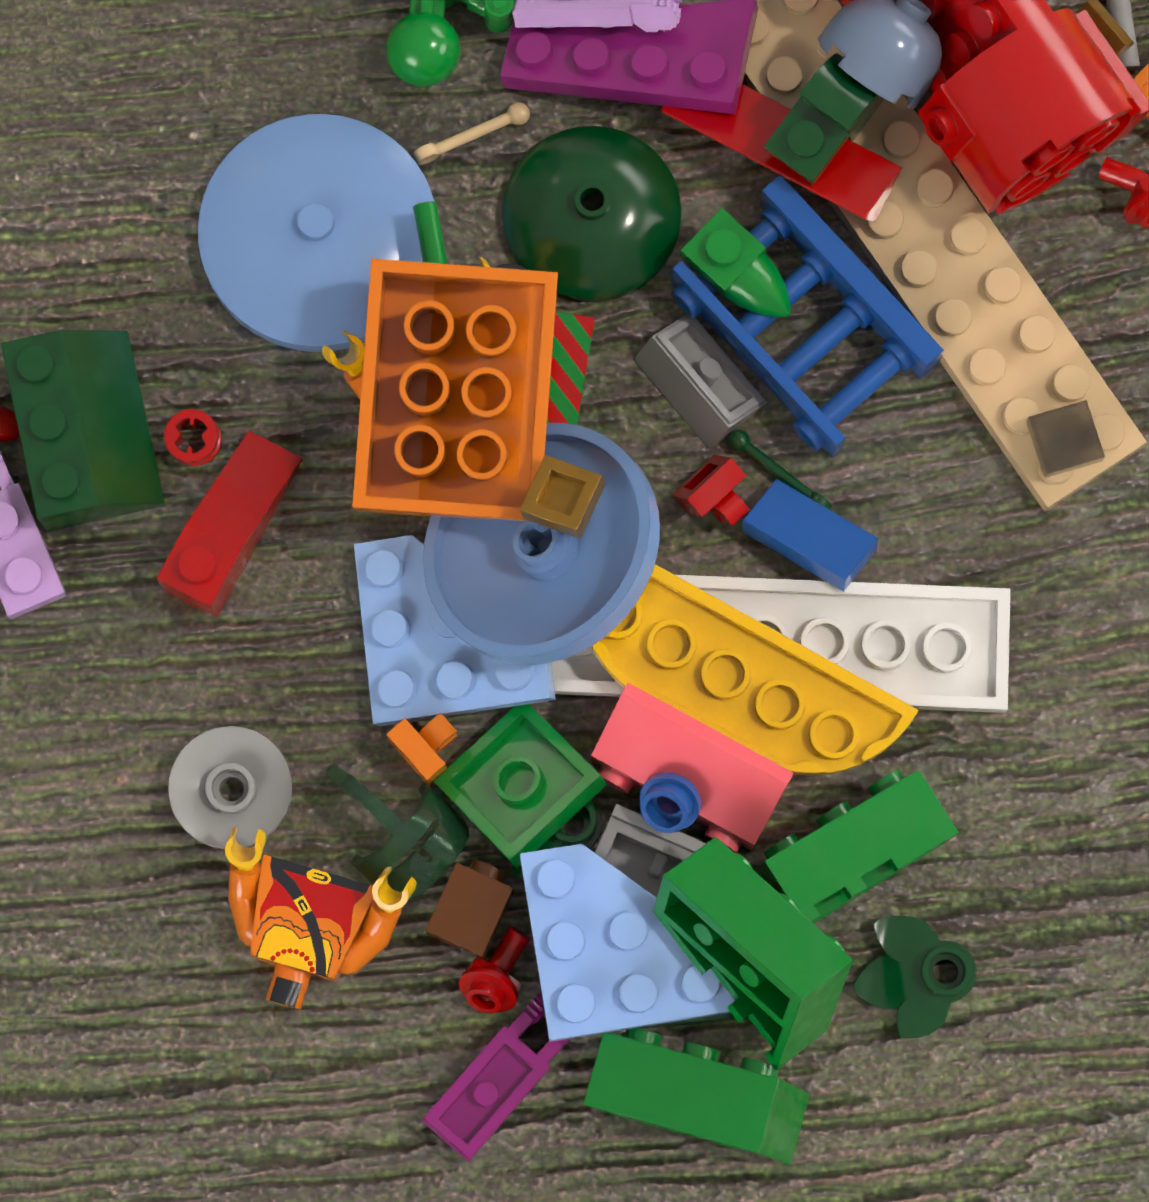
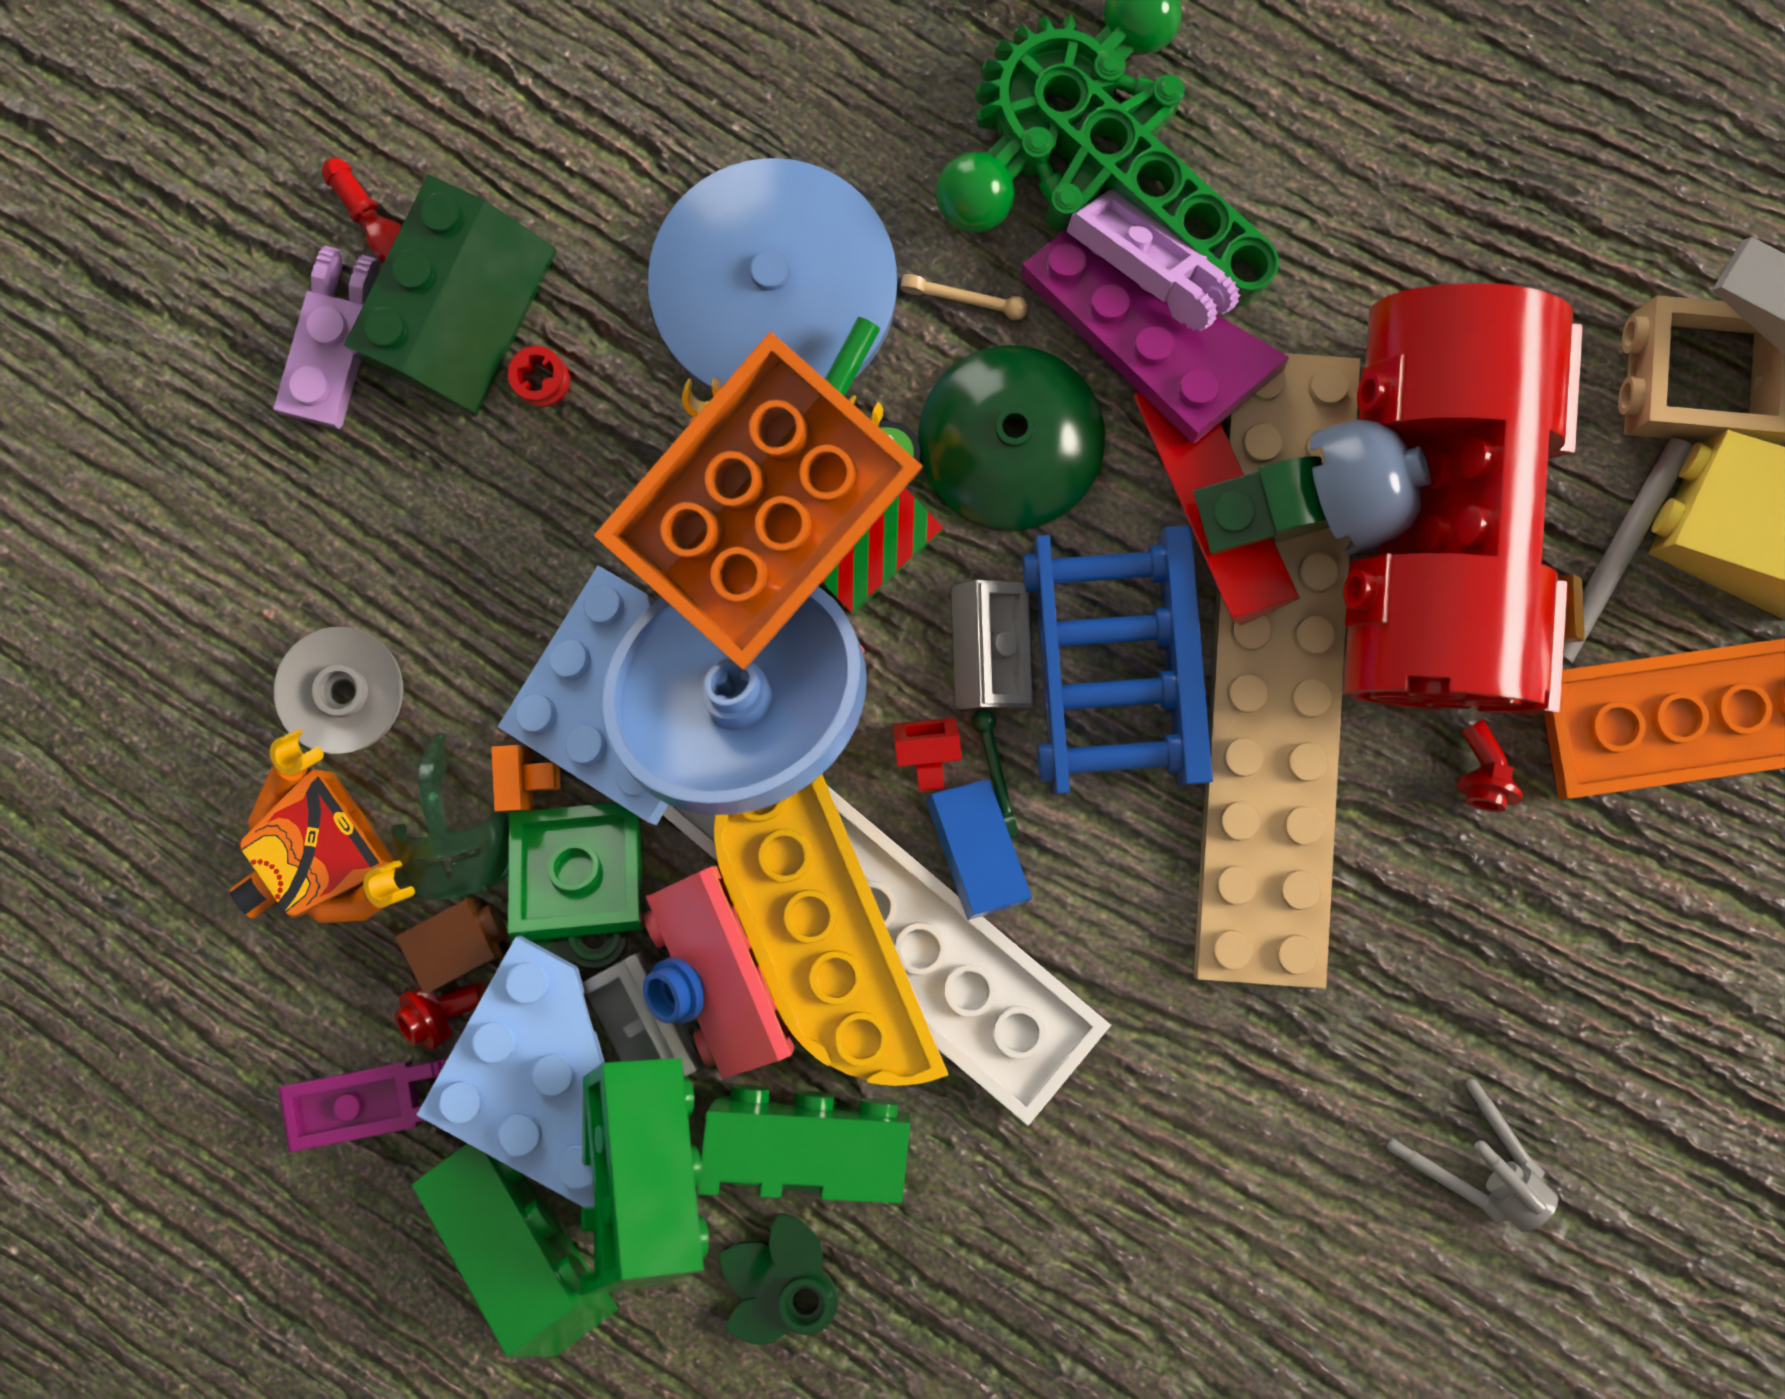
camera: 40 degrees right, 5 degrees up
(228, 524) = (506, 470): red slope -> none
(562, 496) = (773, 665): pearl gold plate -> none
(737, 266) = (1094, 576): green plate -> none
(1065, 439) = (1257, 935): clear smoke tile -> none

